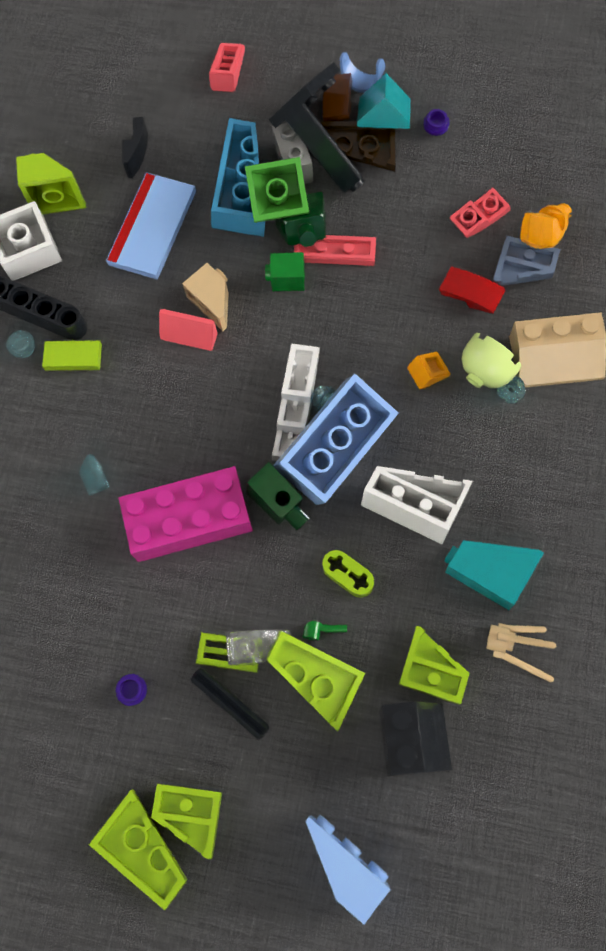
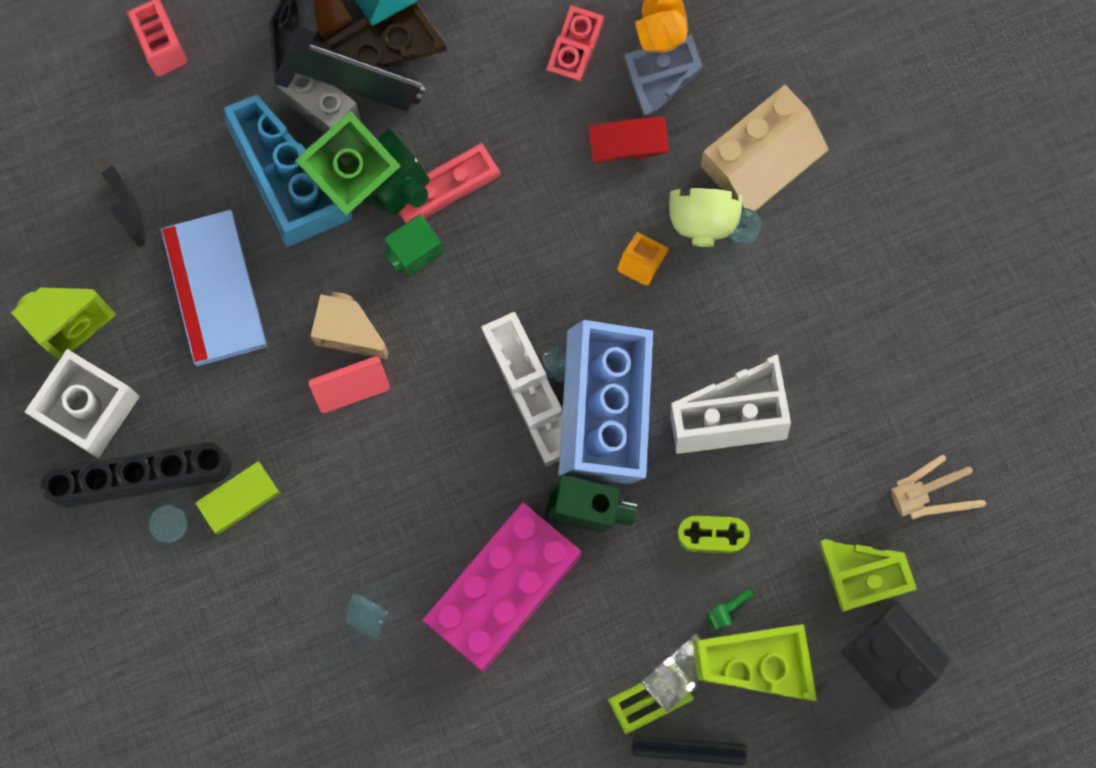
camera: 40 degrees left, 5 degrees up
(493, 569) = (857, 431): teal slope -> none

